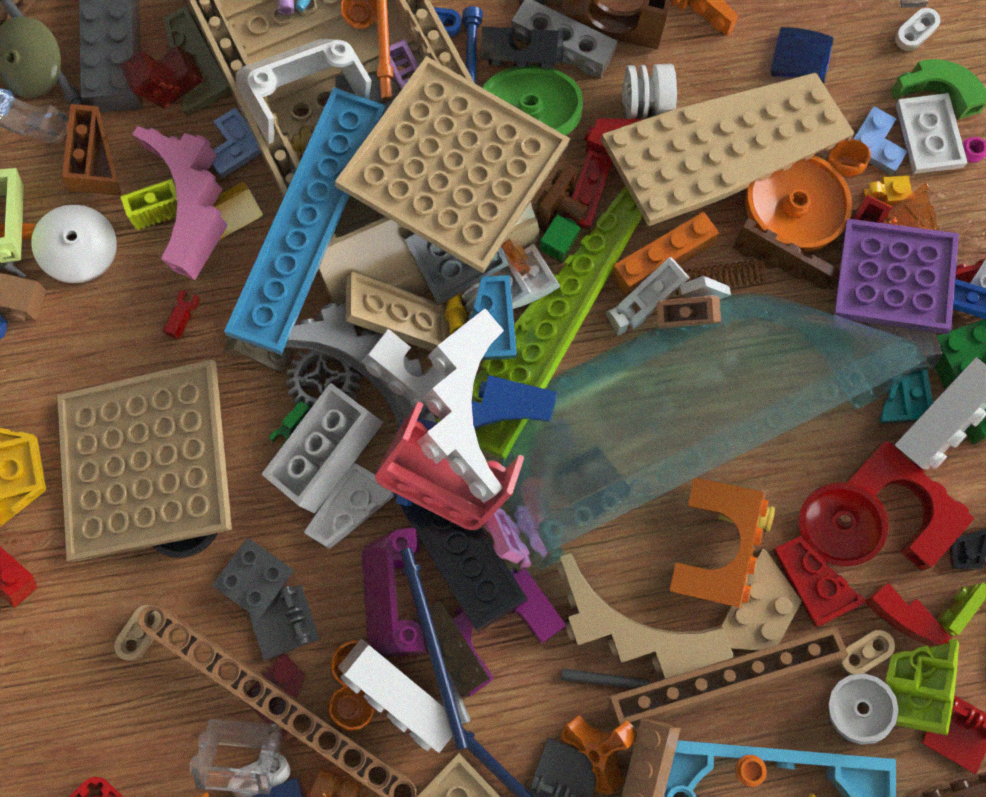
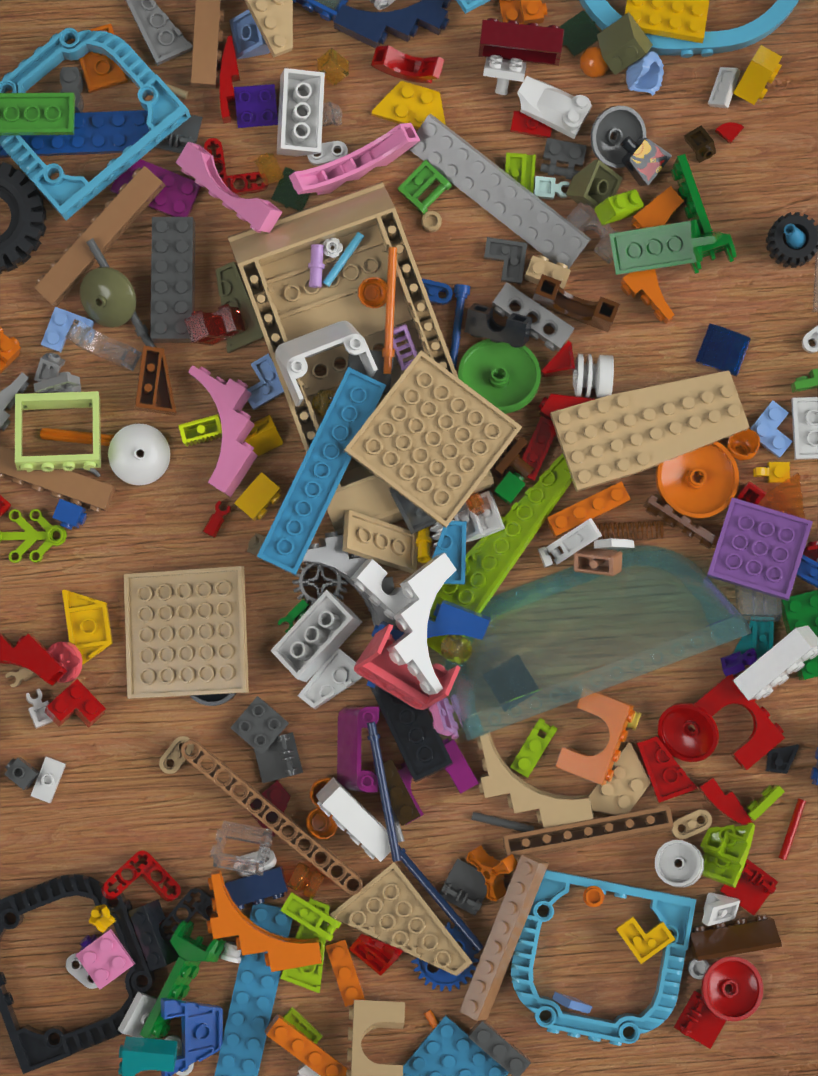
camera: 10 degrees right, 10 degrees up
(228, 278) = (258, 497): none -> yellow brick
(514, 438) = (456, 648): none -> clear yellow head
(606, 86) = (561, 364): none -> red slope
(633, 572) = (533, 748): none -> lime plate
(891, 424) = (736, 662): none -> dark purple plate
(927, 769) = (719, 909): none -> white slope

